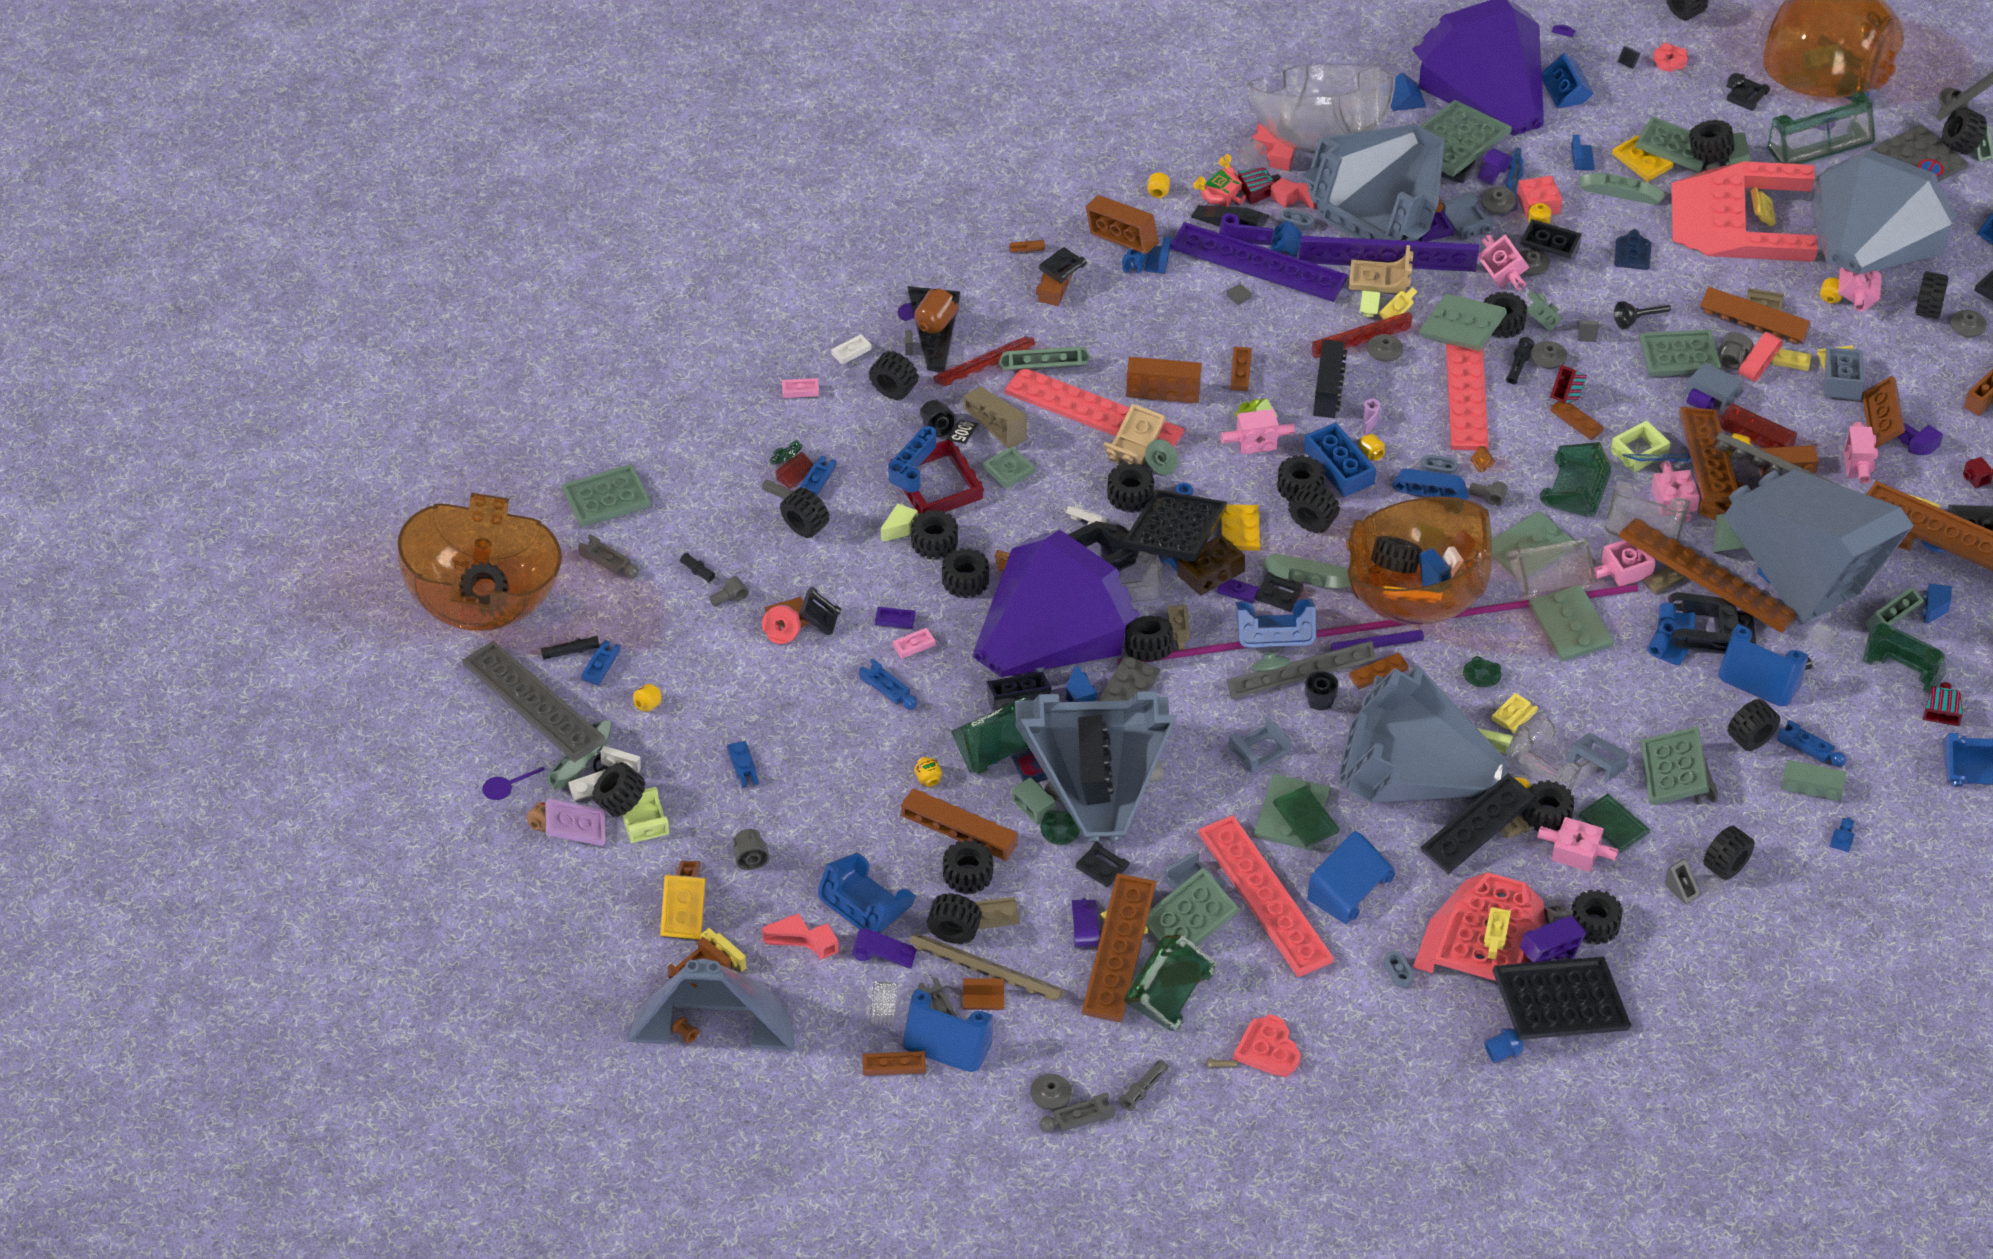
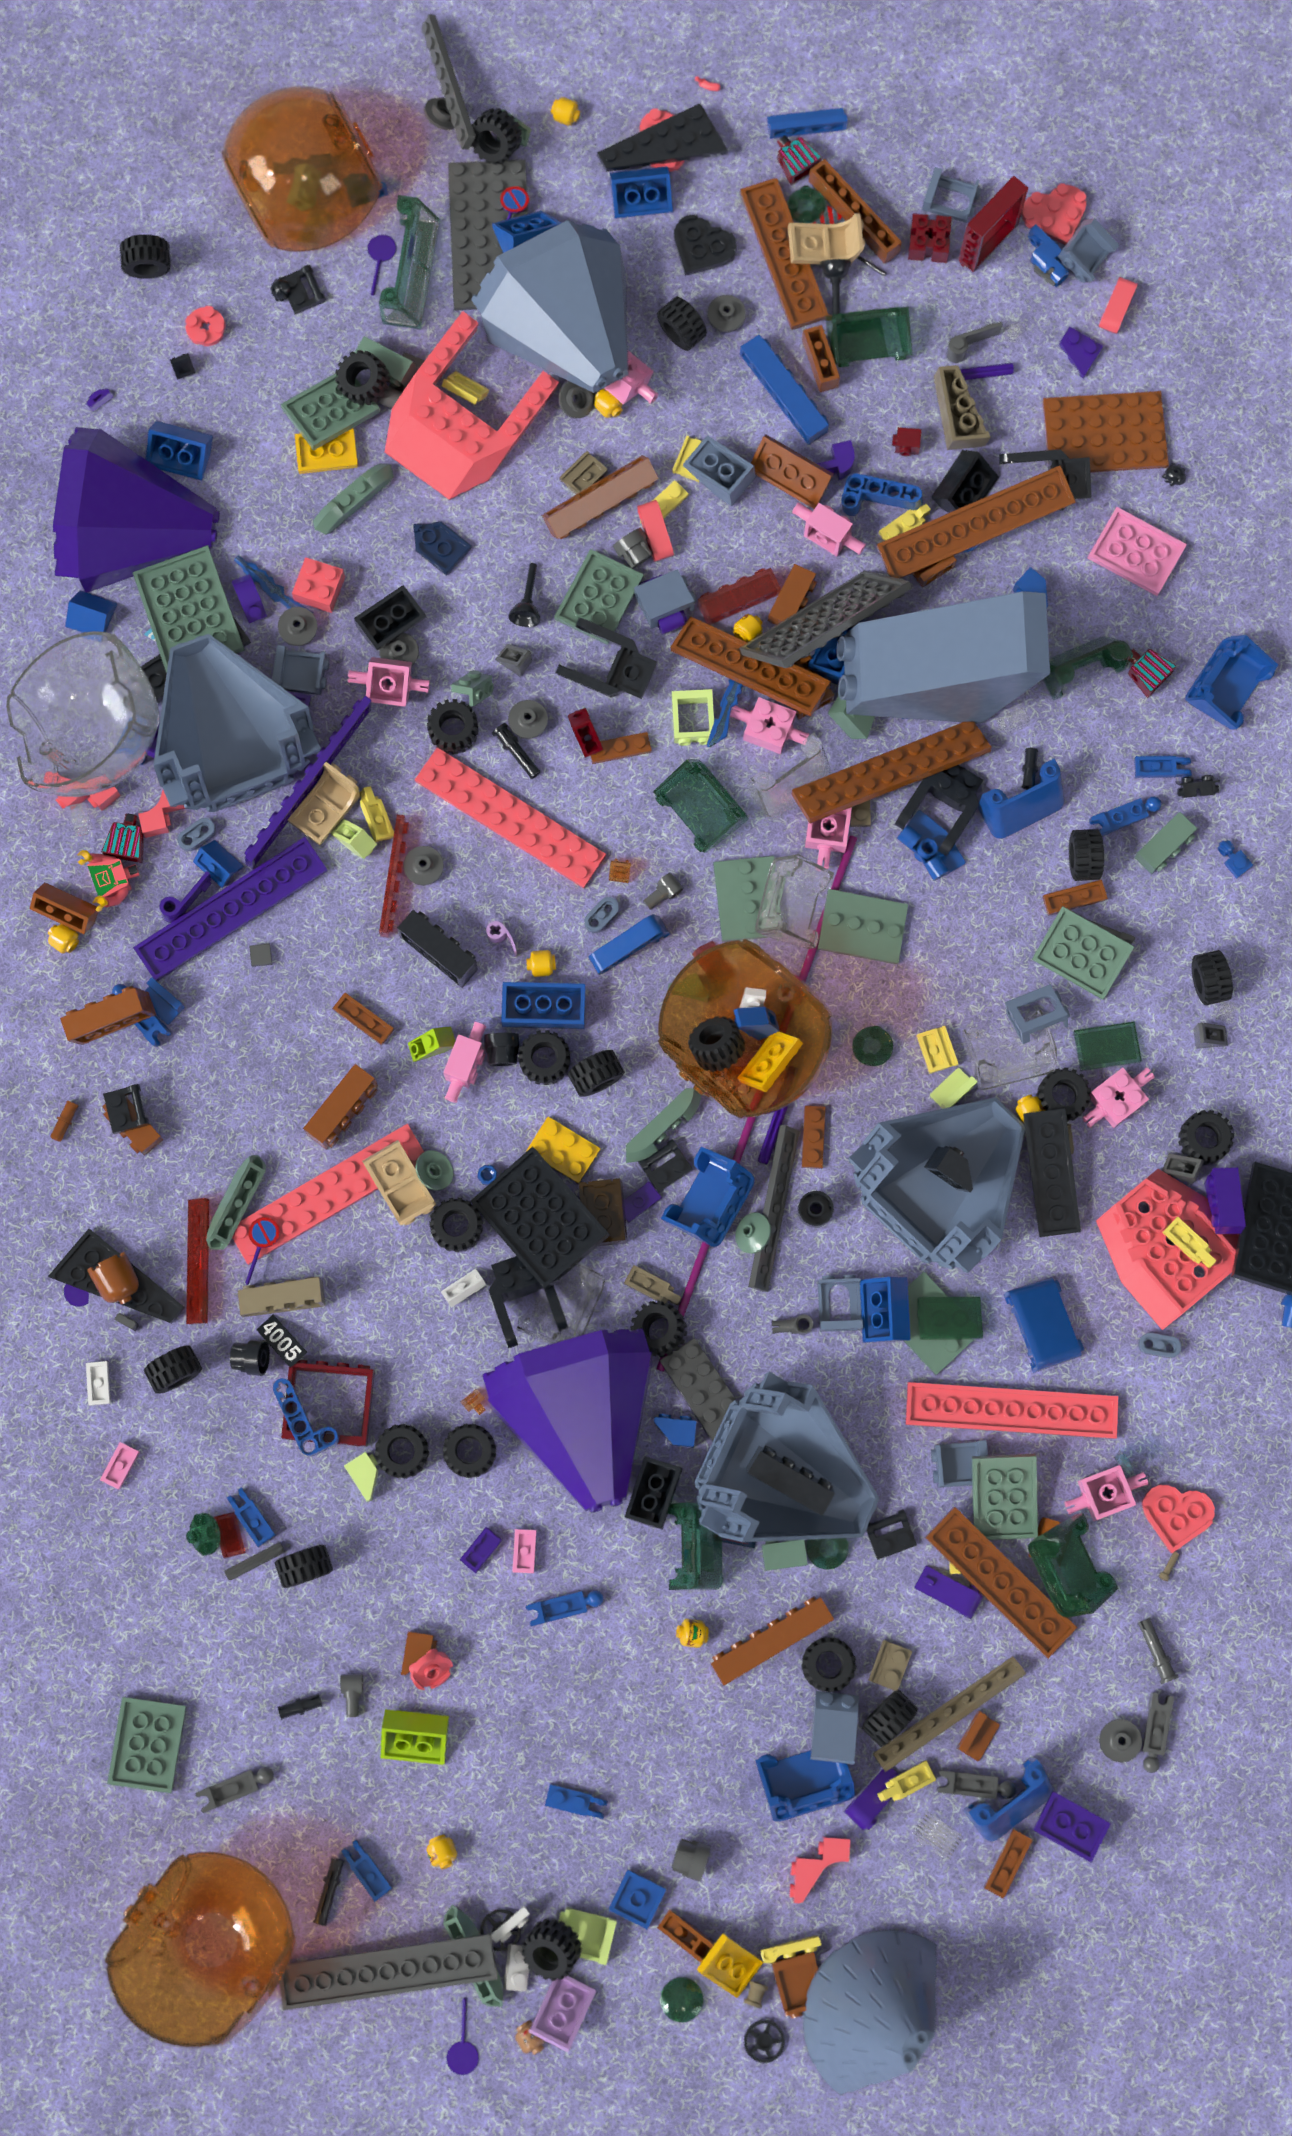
camera: 60 degrees left, 30 degrees up
(479, 572) = (229, 1961): black tyre -> none
(634, 901) = (681, 1999): none -> clear green dish
(637, 969) = (764, 2041): none -> black wheel
(671, 944) = (755, 1994): none -> dark tan bush
(694, 835) = (637, 1899): none -> blue plate
(723, 642) = (414, 1737): none -> lime slope
(817, 615) = (441, 1627): black plate -> none
(911, 961) = (908, 1782): none -> light yellow hinge
(919, 884) = (834, 1727): none -> sand blue slope
(955, 1081) = (1071, 1826): none -> dark purple plate
(1009, 467) = (354, 1323): sand green plate -> none
(1031, 383) = (263, 1234): none -> piece
(1180, 172) = (64, 908): none -> dark orange brick
(1213, 215) = (160, 882): black wedge -> none
(1222, 725) = (791, 1325): none -> dark grey pin
(1248, 984) = (1100, 1505): none -> bright pink brick
(1280, 770) = (885, 1309): none -> blue slope
(1282, 980) = (1123, 1461): none -> clear light blue tile
(1285, 447) = (501, 1048): none -> black piece
(1425, 744) = (951, 1167): none -> black slope
(1462, 322) = (443, 774): sand green plate -> none
(1540, 212) = (344, 602): yellow head -> none
(1581, 155) = (284, 503): blue panel -> none
(1638, 389) = (629, 670): none -> black plate
(1719, 745) = (1075, 897): none -> dark orange plate
(1818, 261) = (583, 403): none -> dark grey piece
(1874, 751) = (1161, 767): none -> blue hinge
(1876, 775) = (1205, 784): none -> black hinge
(1915, 463) = (882, 496): none -> blue beam
(1944, 382) = (784, 389): none -> blue brick

